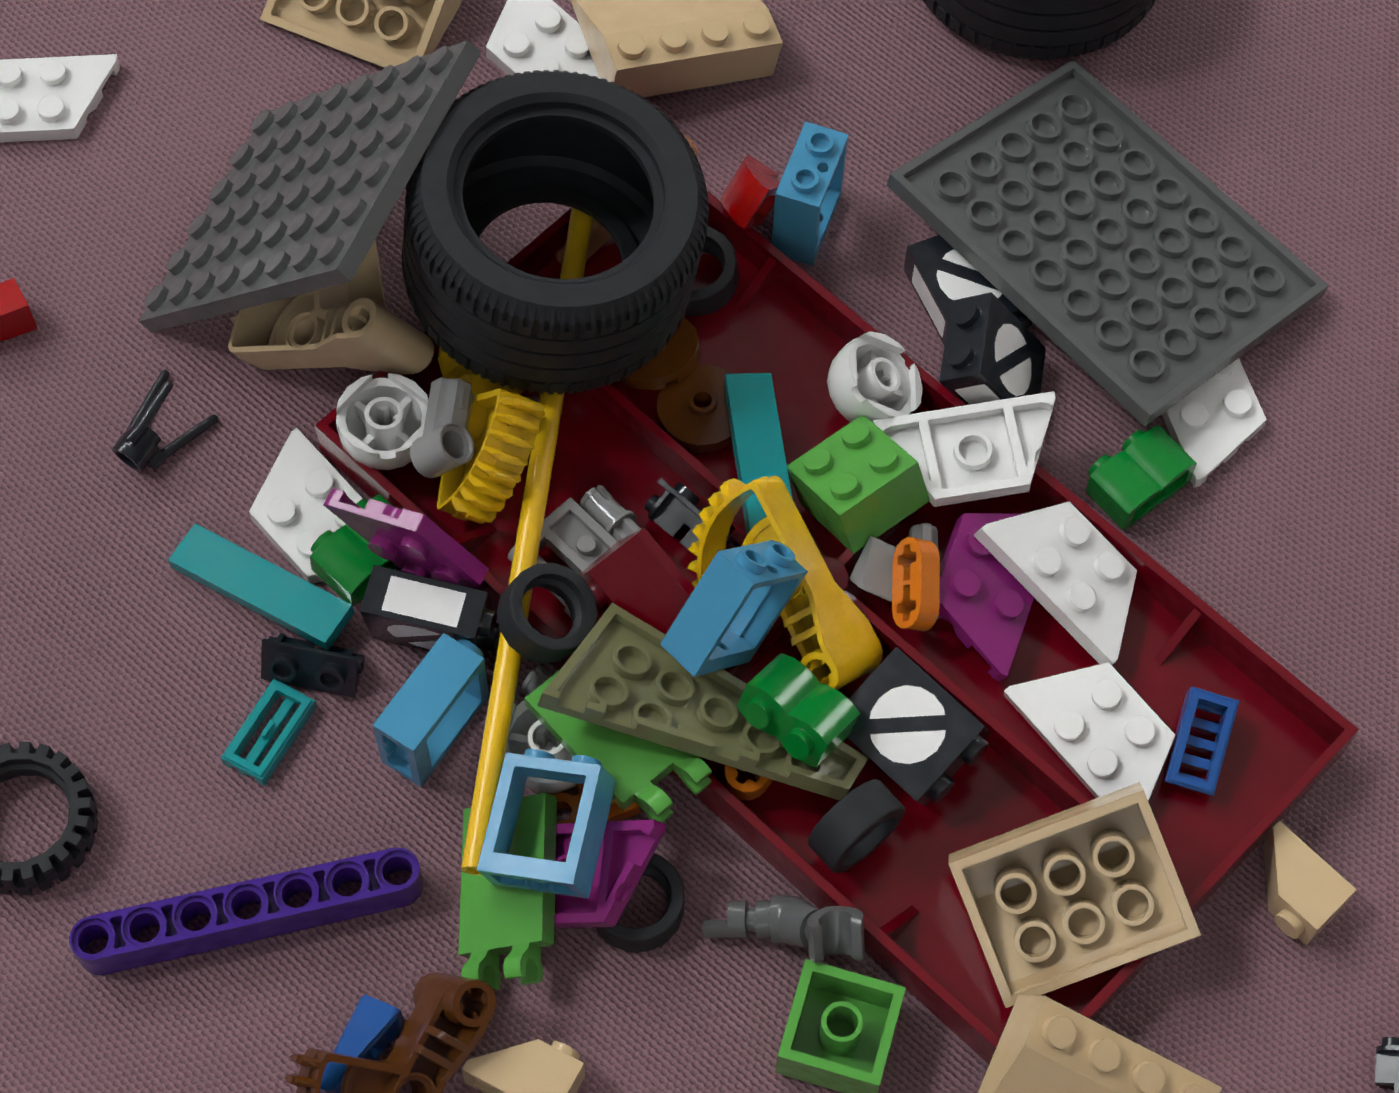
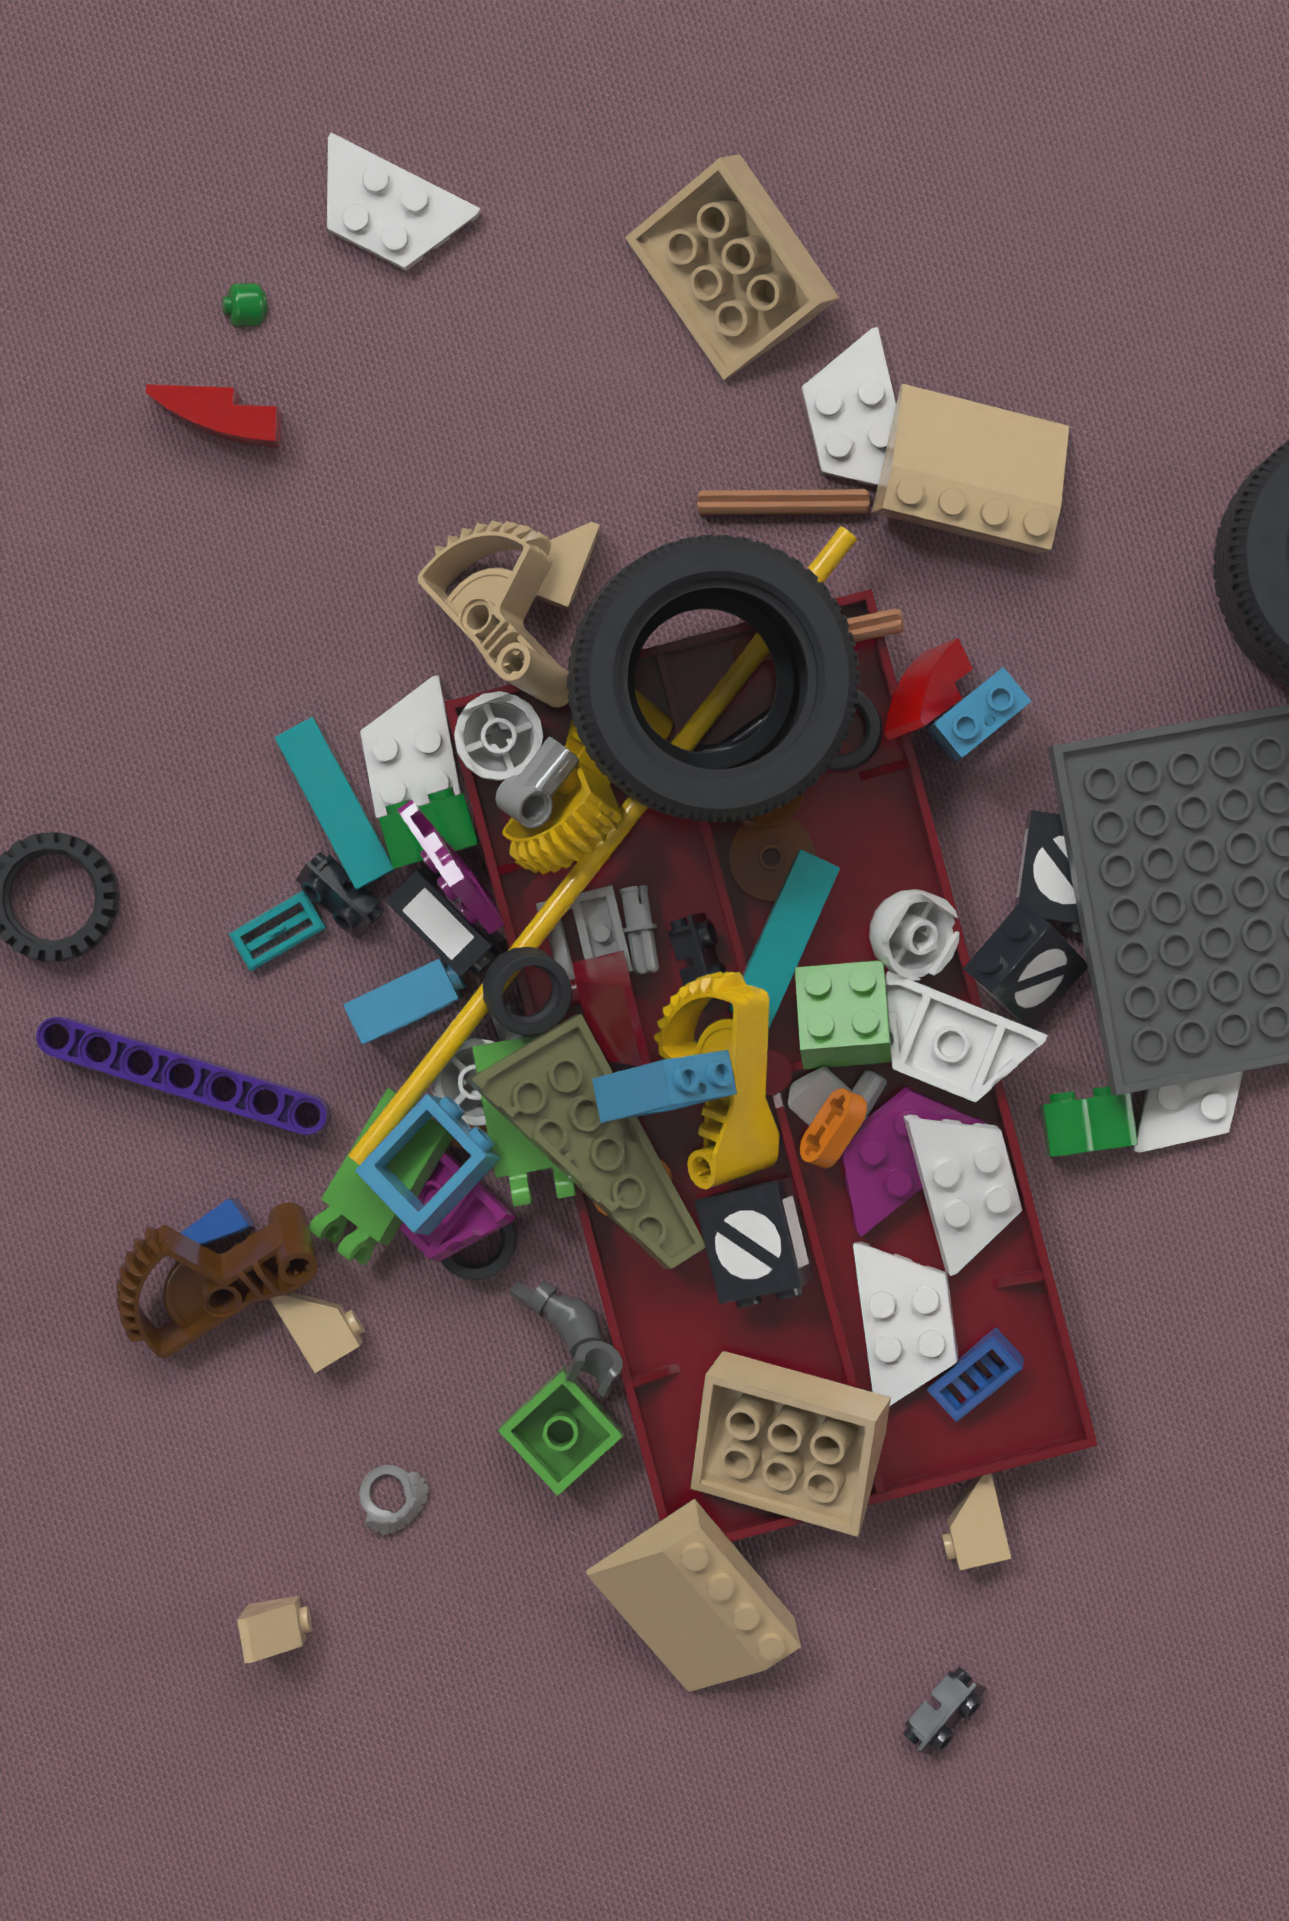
camera: 30 degrees right, 25 degrees up
(139, 442) = (305, 616): black plant -> none
(309, 191) = (541, 509): dark grey plate -> none
(798, 710) = (667, 1189): green brick -> none
(856, 826) = (662, 1296): black tyre -> none

